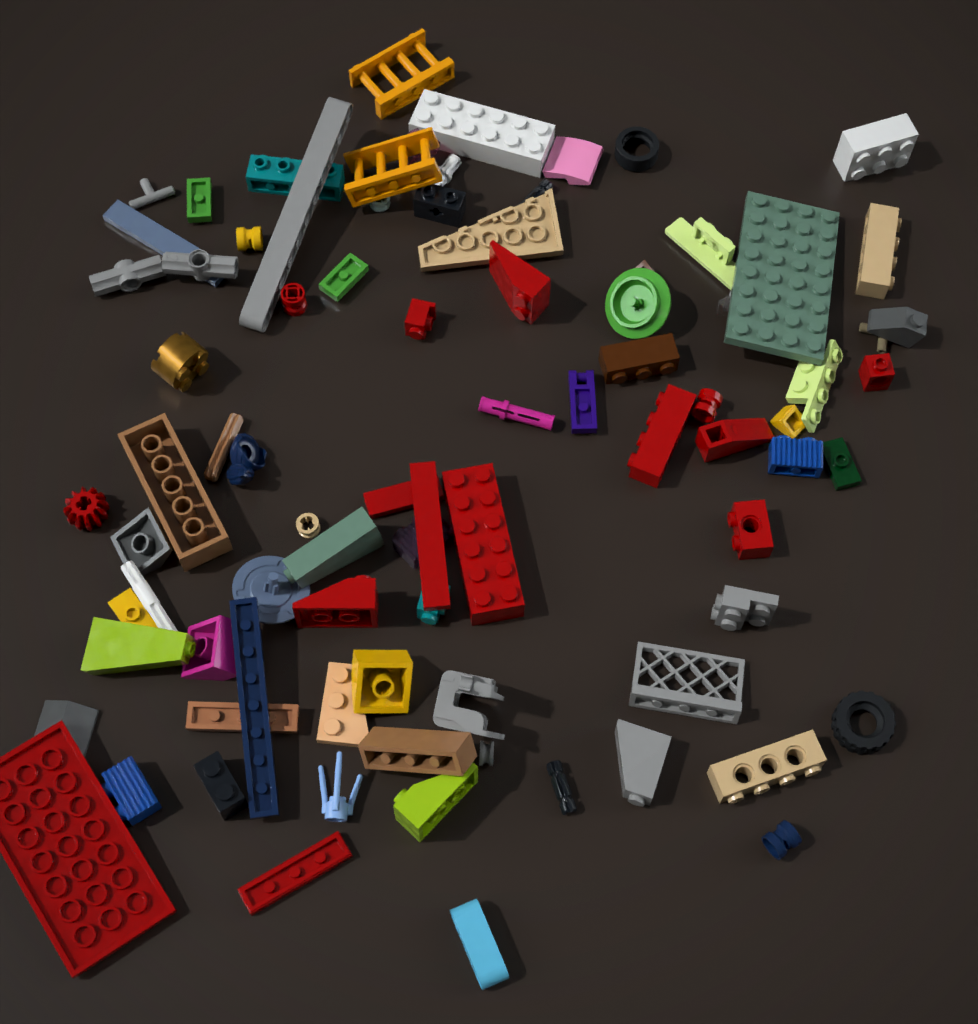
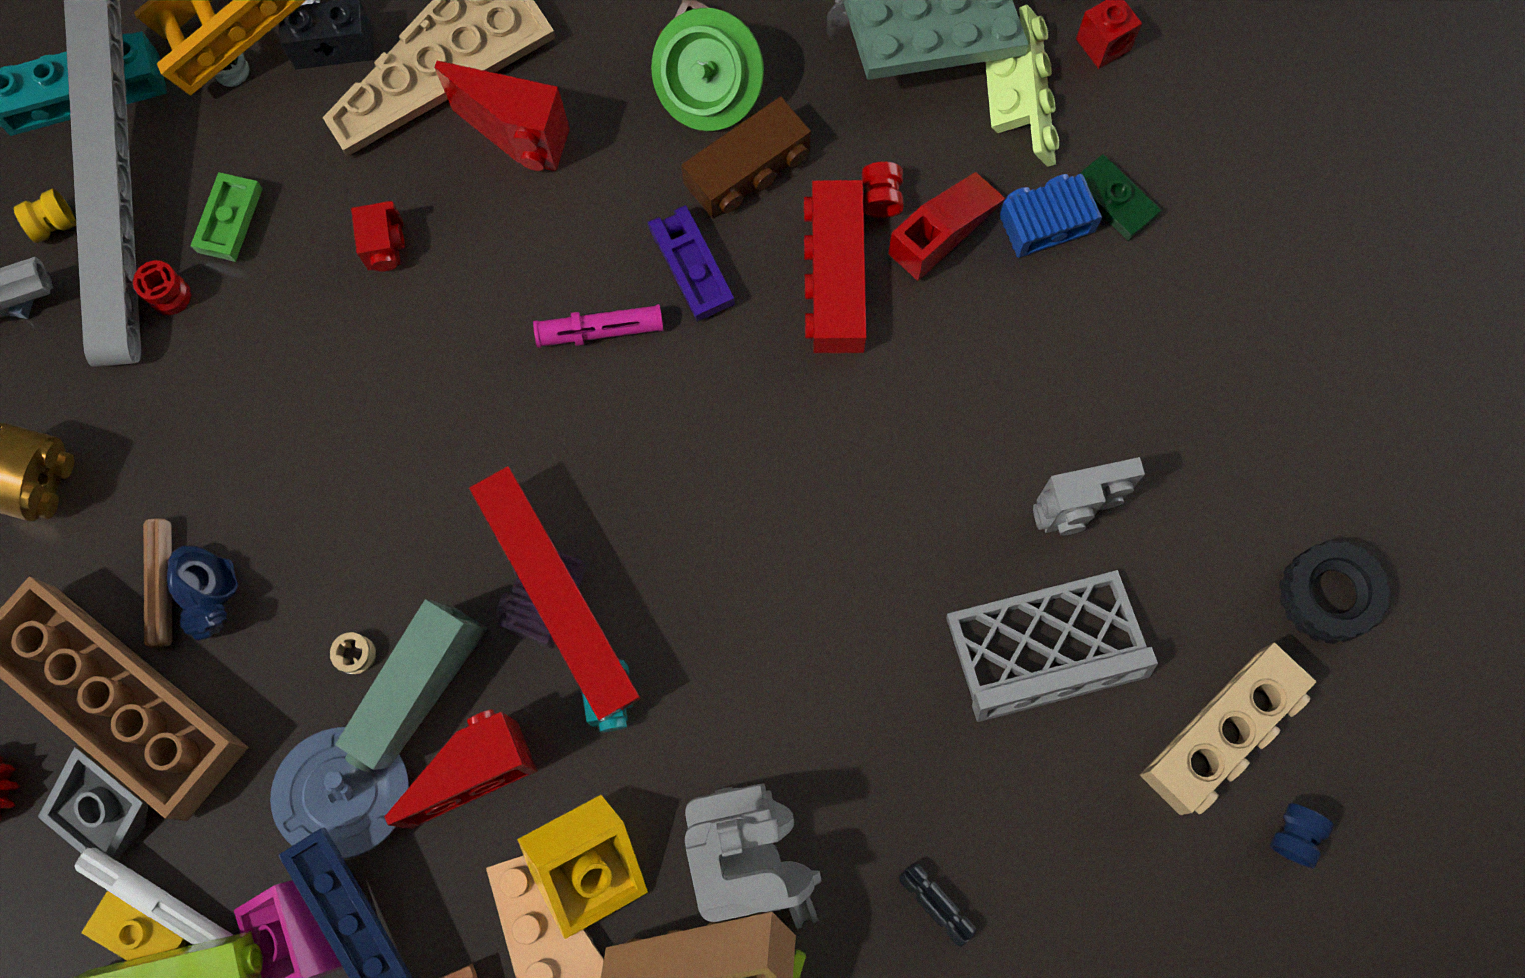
camera: 20 degrees left, 10 degrees up
(392, 499) = (467, 550): red tile -> none
(482, 544) = (642, 564): red brick -> none
(640, 760) = (1039, 809): light grey slope -> none
(755, 516) = (1036, 336): red brick -> none
(788, 421) = (1012, 161): yellow slope -> none

